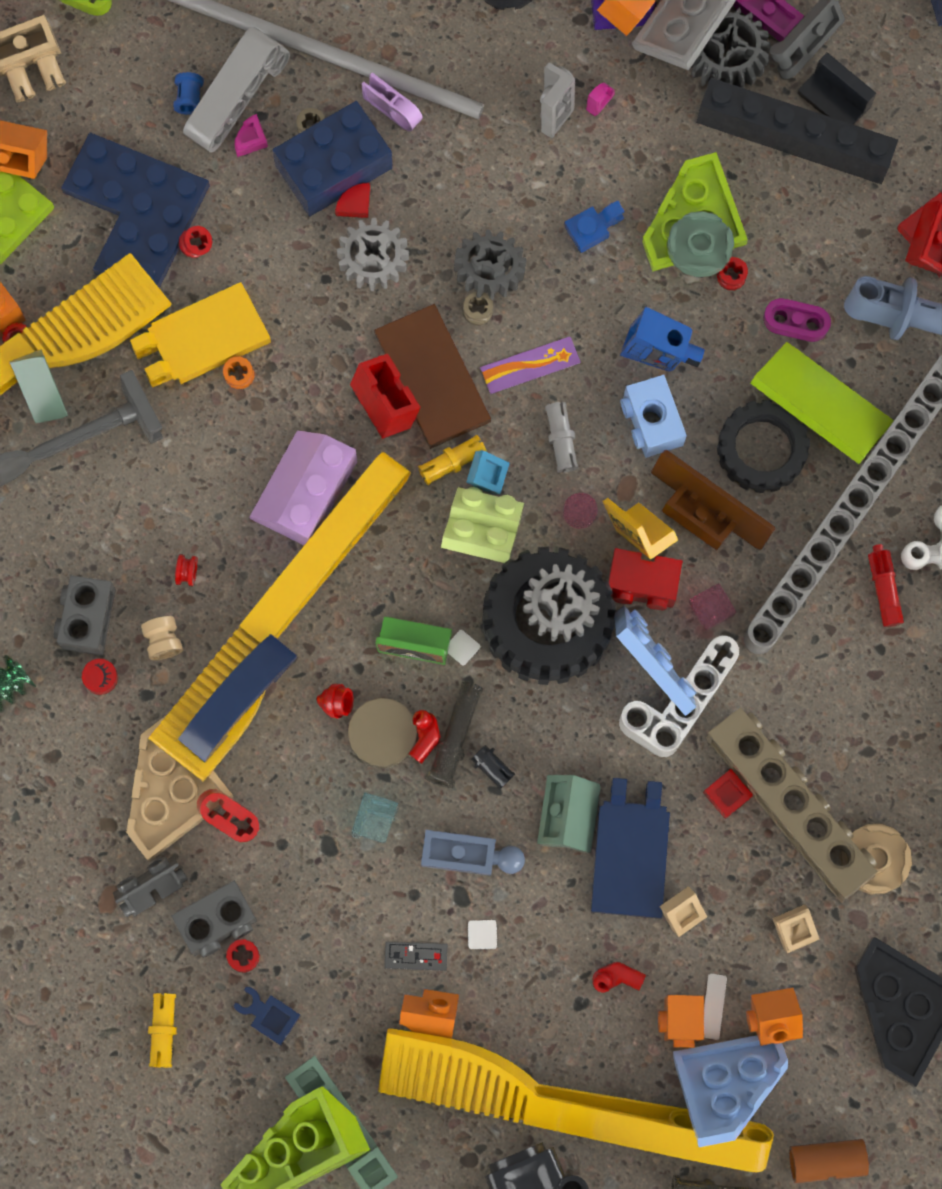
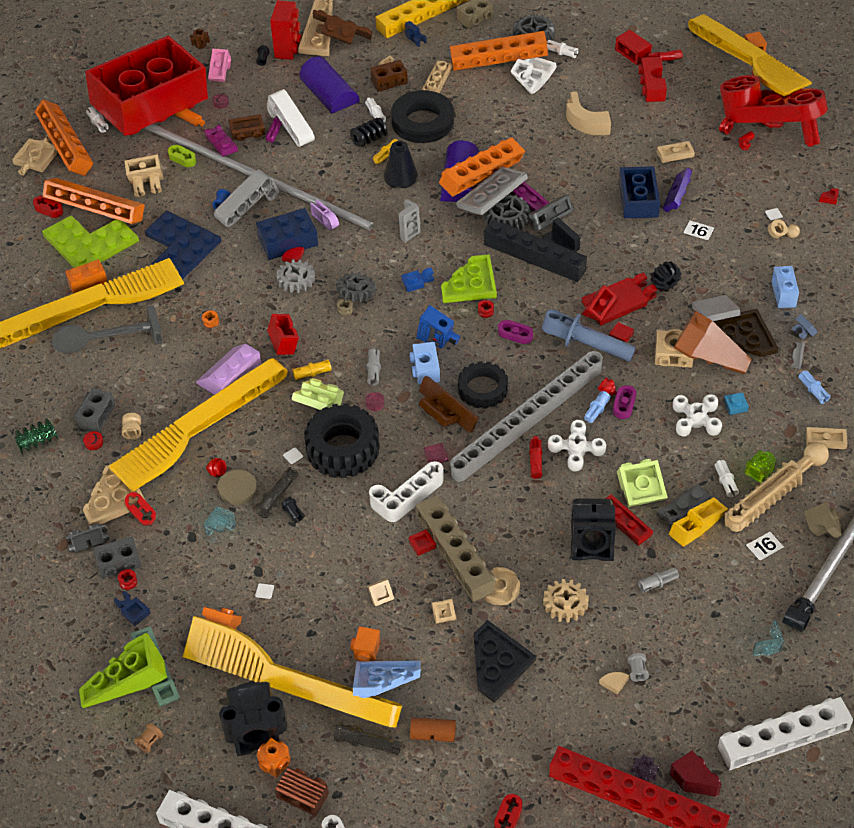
camera: 15 degrees right, 25 degrees down
(39, 387) = (103, 308): slope -> none
(162, 1030) = (71, 607): yellow pin -> none
(186, 570) = (154, 398): red bush -> none
(193, 251) = (202, 263): red bush -> none
(202, 336) = (194, 301): yellow tile -> none
(236, 696) = (158, 449): dark blue slope -> none
(250, 137) = (247, 223): dark pink tile -> none
(414, 640) = (266, 447): bright green panel -> none
(416, 956) = (224, 595): dark grey sticker -> none
(428, 735) = (261, 488): red arm -> none
(434, 374) = (314, 333): reddish brown tile -> none
(468, 854) = (267, 548): sand blue plate -> none
(487, 472) = (328, 375): dark azure plate -> none
(530, 365) = (366, 336): medium lavender sticker -> none
(569, 812) = (330, 537): sand green panel -> none
(574, 604) = (346, 424): light grey gear -> none
(599, 98) = (434, 226): dark pink tile -> none
(616, 974) = (334, 619): red arm -> none
(631, 854) = (358, 562): dark blue tile -> none
(641, 528) = (401, 409): yellow panel -> none
(644, 580) = (400, 434): red brick -> none
(653, 657) = (392, 459): light blue plate -> none
(700, 244) = (470, 290): sand green tile -> none
(714, 1005) = (387, 645): white sticker -> none
(775, 1016) = (419, 649): orange brick -> none
(822, 402) = (517, 366): lime tile -> none

